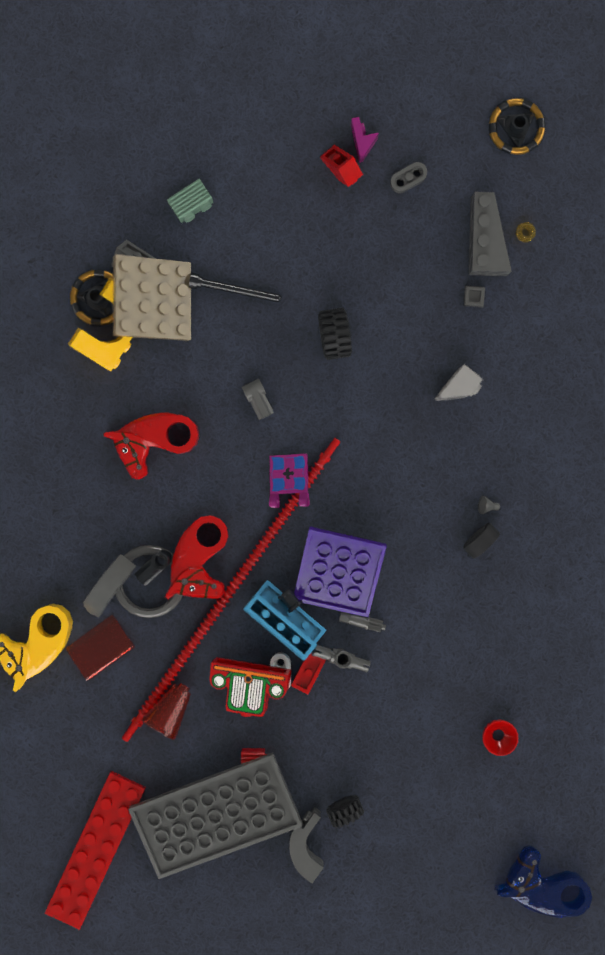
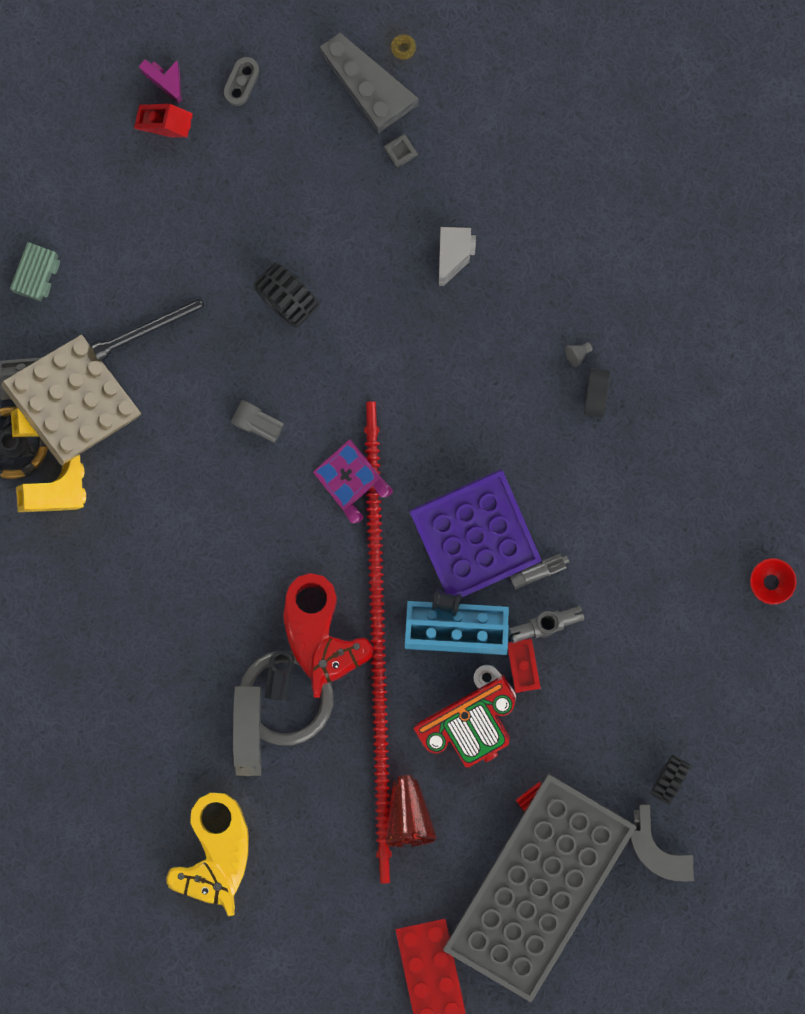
camera: 35 degrees left, 5 degrees down
(100, 648) = (286, 806): clear red piece -> none
(138, 436) = (170, 537): red animal -> none

